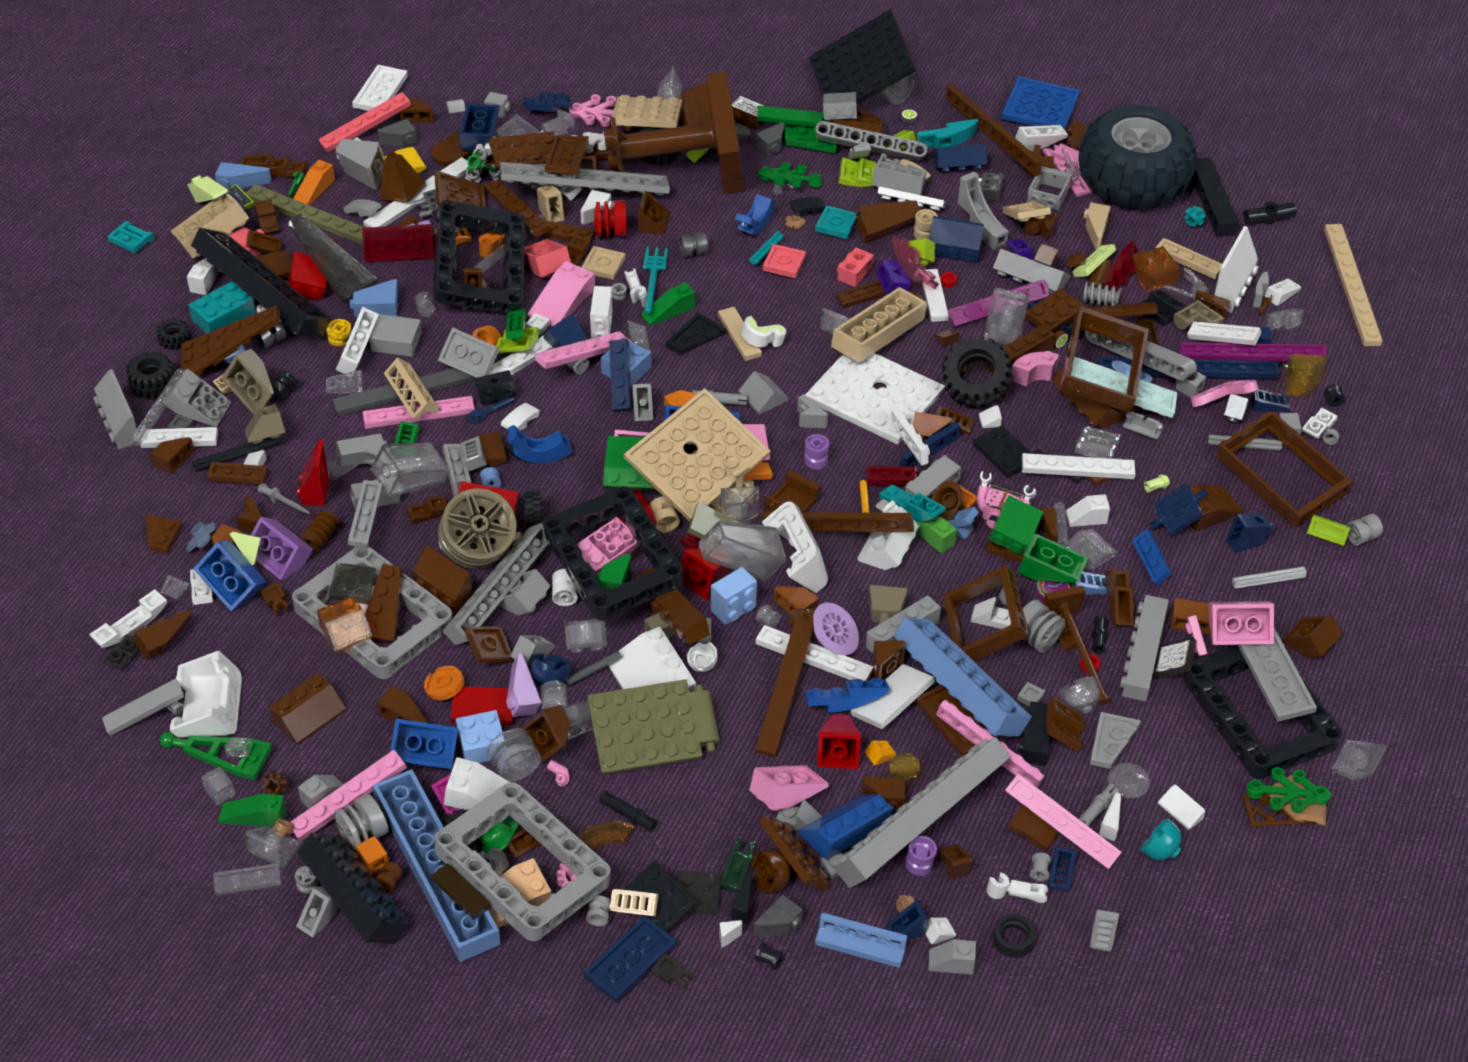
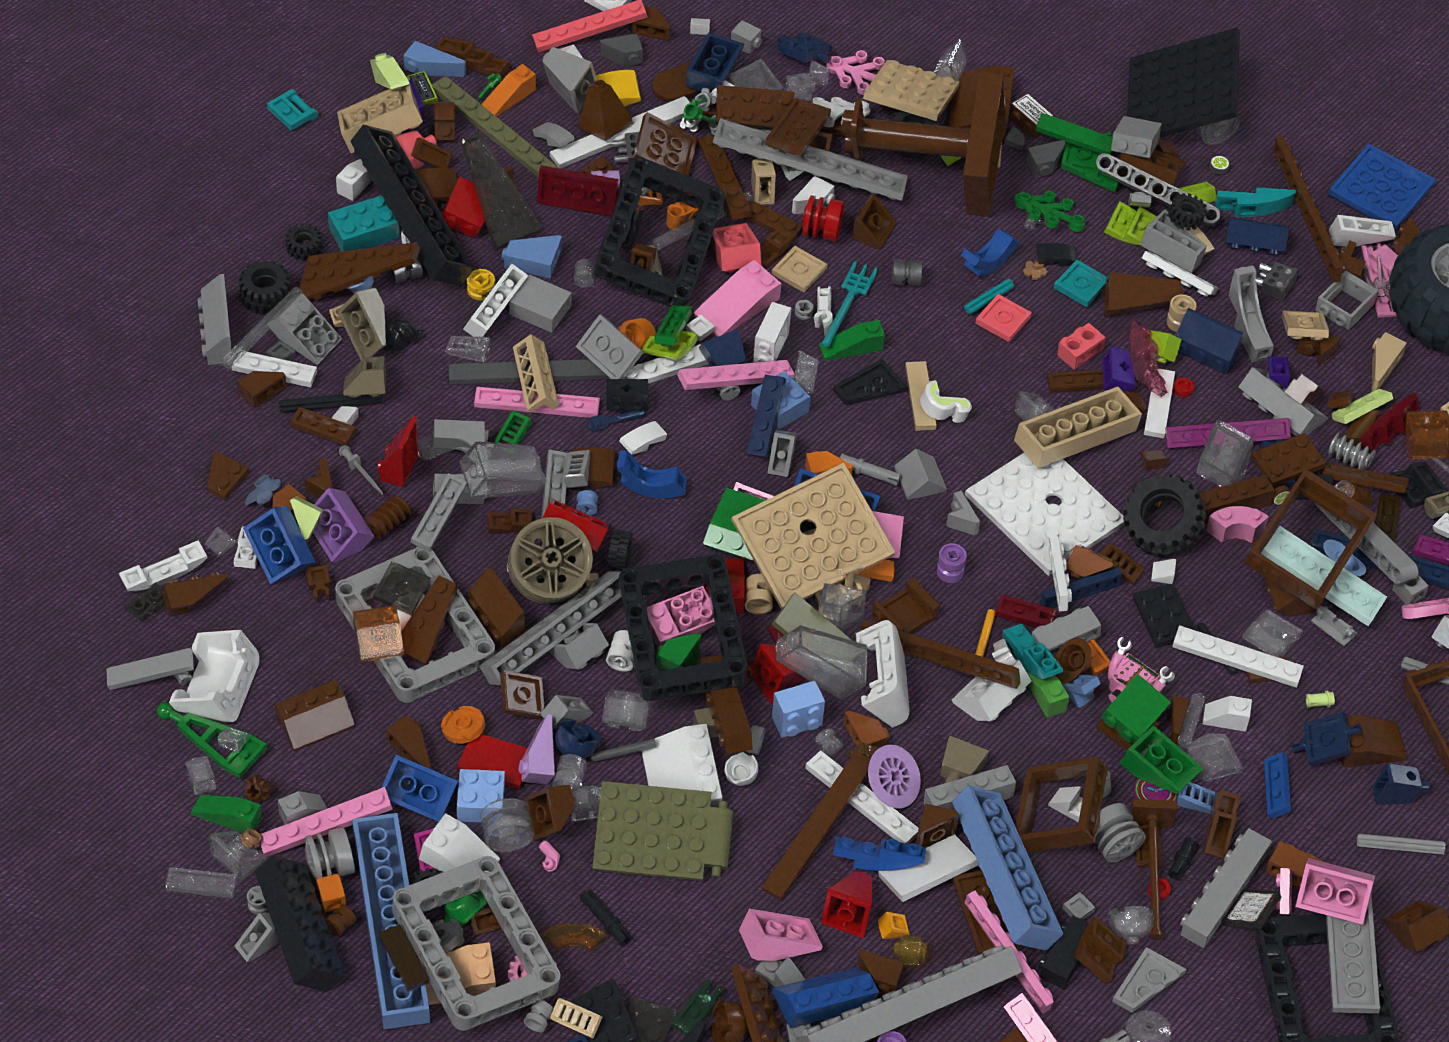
camera: 15 degrees right, 5 degrees up
(902, 149) = (1190, 204): none -> black tyre

